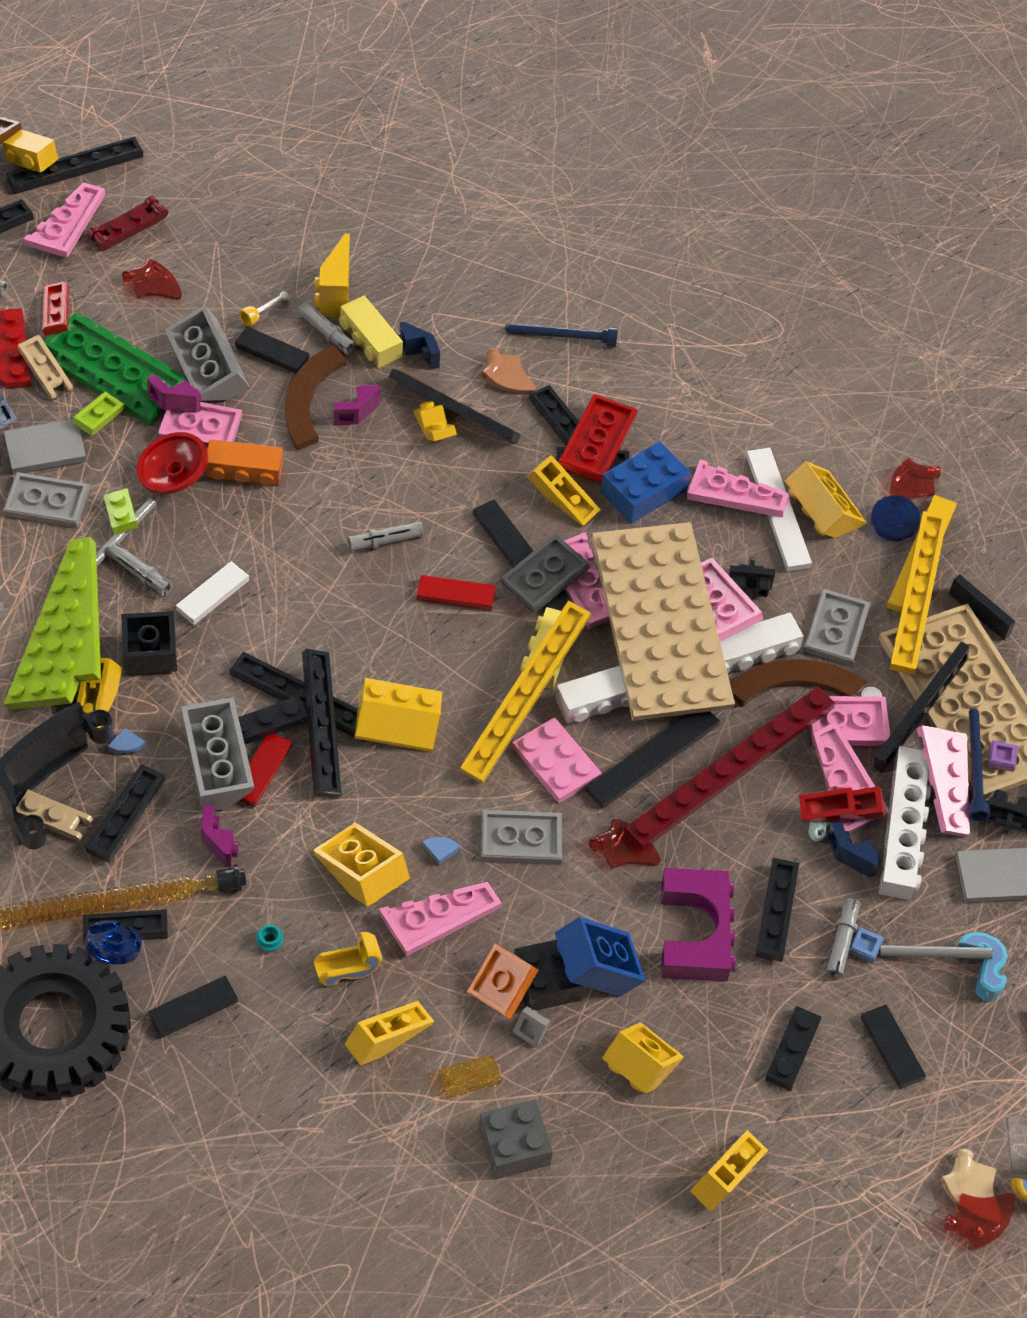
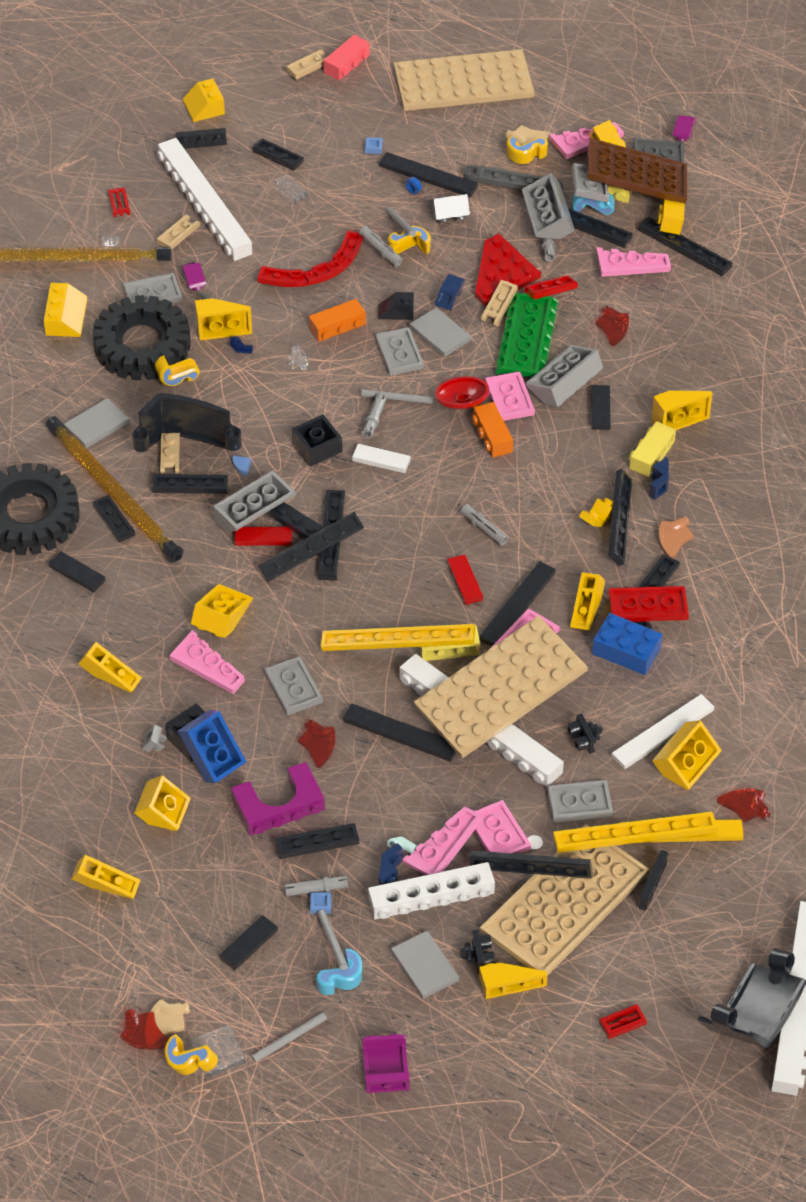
camera: 70 degrees right, 5 degrees down
(66, 635) = (286, 400): lime wing -> none
(98, 413) = (481, 344): lime plate -> none
(102, 692) = (267, 431): yellow slope -> none
(113, 942) = (91, 511): clear blue tile -> none
(121, 511) = (411, 387): lime plate -> none
(127, 224) = (653, 292): dark red plate -> none
(177, 398) = (515, 370): magenta slope -> none
(218, 841) = (194, 536): magenta slope -> none
(250, 315) = (621, 384): yellow hinge -> none
(269, 931) = (143, 587): teal plate -> none
(302, 391) = (576, 436): reddish brown tile -> none
(333, 333) = (637, 430): light grey pin -> none
(349, 962) = (147, 631): yellow animal -> none
(354, 412) = (587, 469): magenta slope -> none
(398, 714) = (341, 582): yellow slope -> none
(441, 848) = (258, 647): medium blue tile -> none
(469, 1076) = (103, 723): clear yellow plate -> none
(502, 981) = (171, 707): orange tile -> none
(515, 1139) = (67, 758): dark grey brick -> none
(545, 573) = (505, 614): dark grey tile -> none
(556, 760) = (364, 681): bright pink plate -> none
(607, 335) = (749, 578): dark blue piece -> none
(726, 490) = (655, 696): bright pink wing -> none
(729, 768) = (413, 774): dark red plate -> none
(730, 605) = (548, 721): bright pink wing -> none
(793, 1048) = (217, 887): black plate -> none
(795, 673) = (519, 786): reddish brown tile -> none
(842, 805) = (417, 845): red slope -> none
(895, 518) = (702, 799): clear blue tile -> none
(948, 776) = (482, 898): wing -> none
(979, 808) = (466, 927): dark blue piece -> none
(1002, 756) = (521, 929): medium lavender tile -> none

